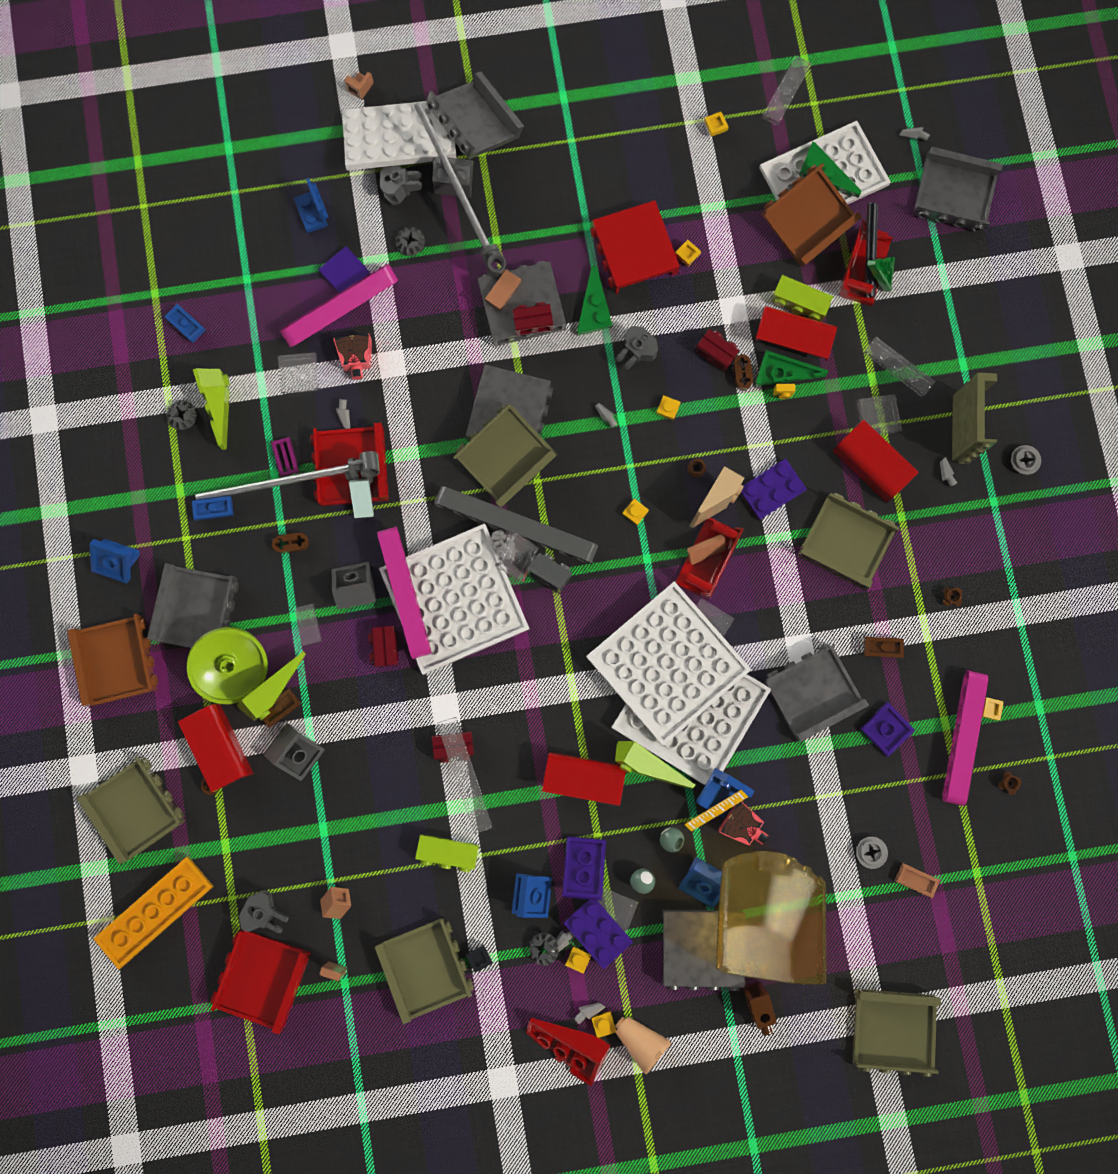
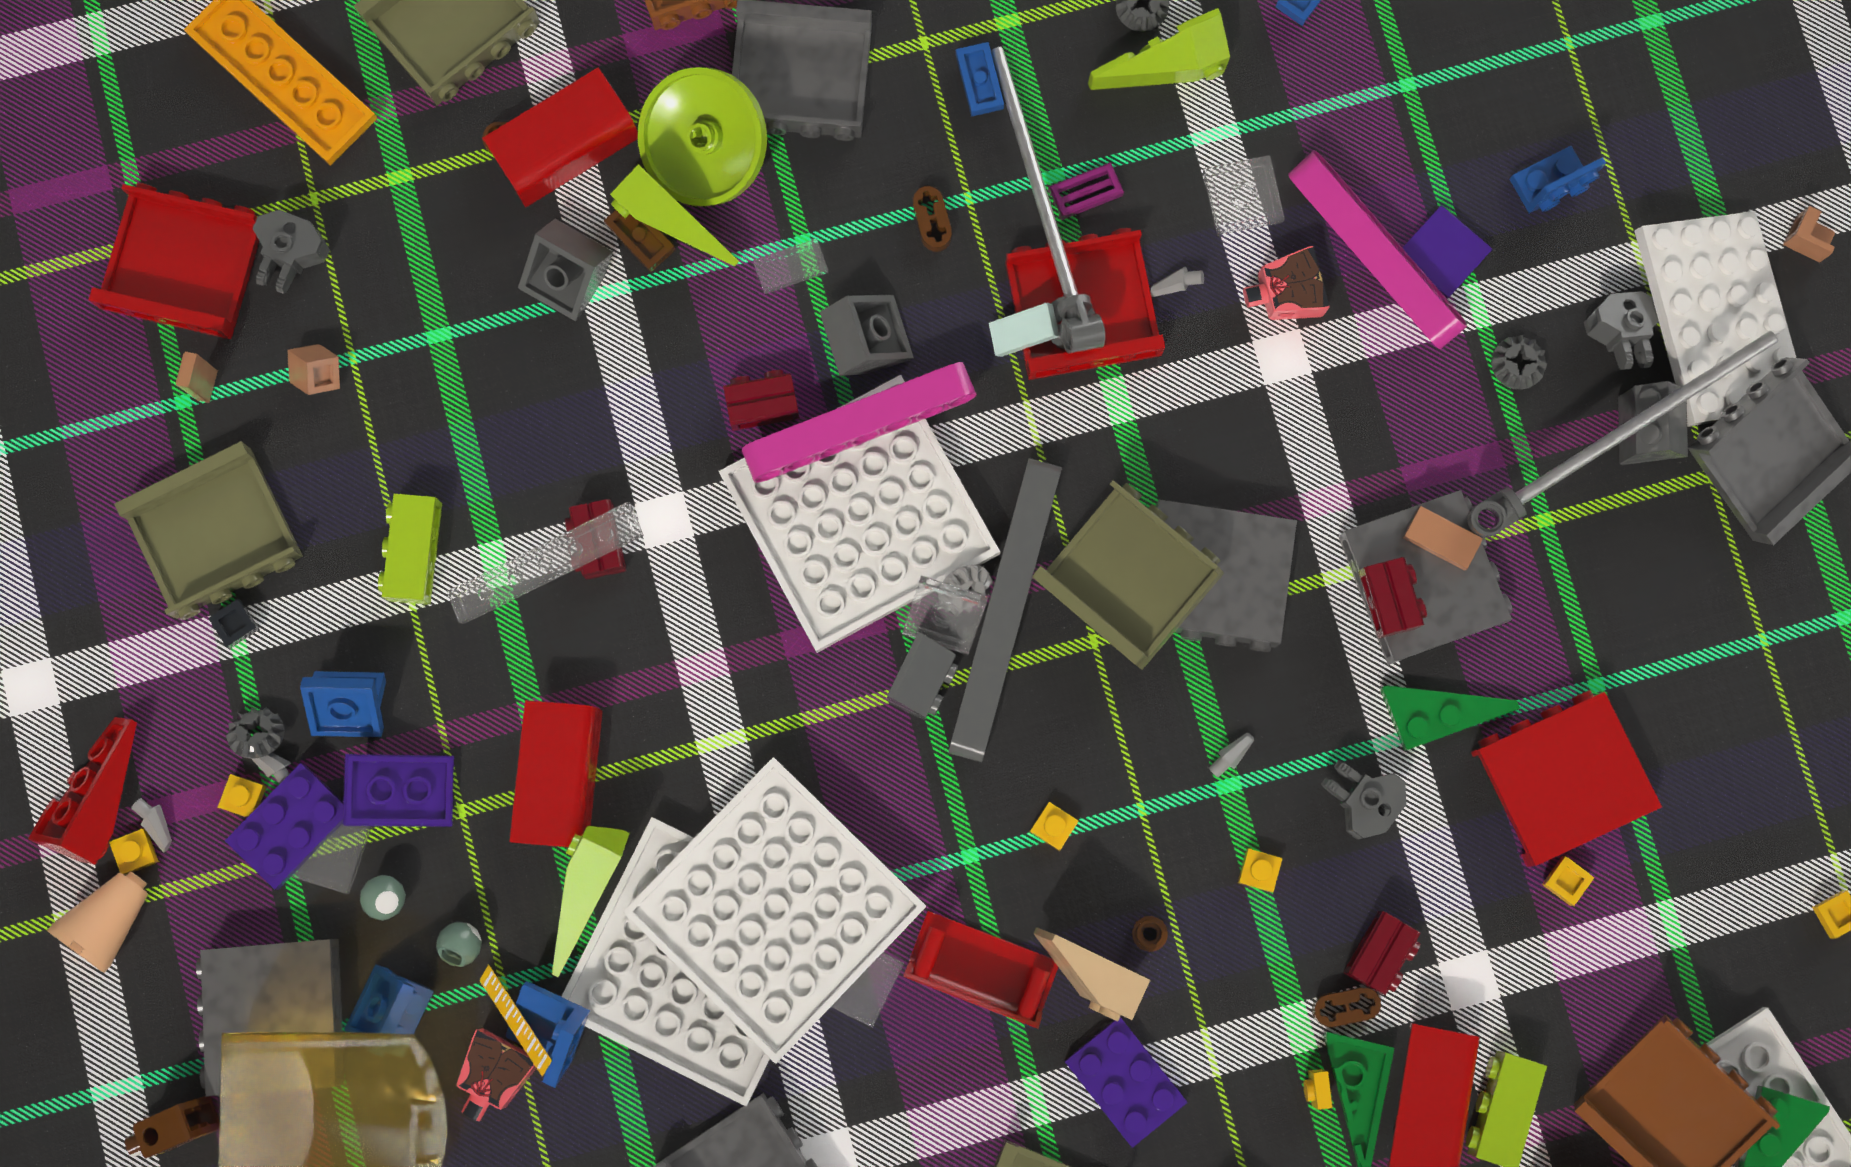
camera: 85 degrees right, 0 degrees up
(706, 549) = (995, 963): nougat tile -> none

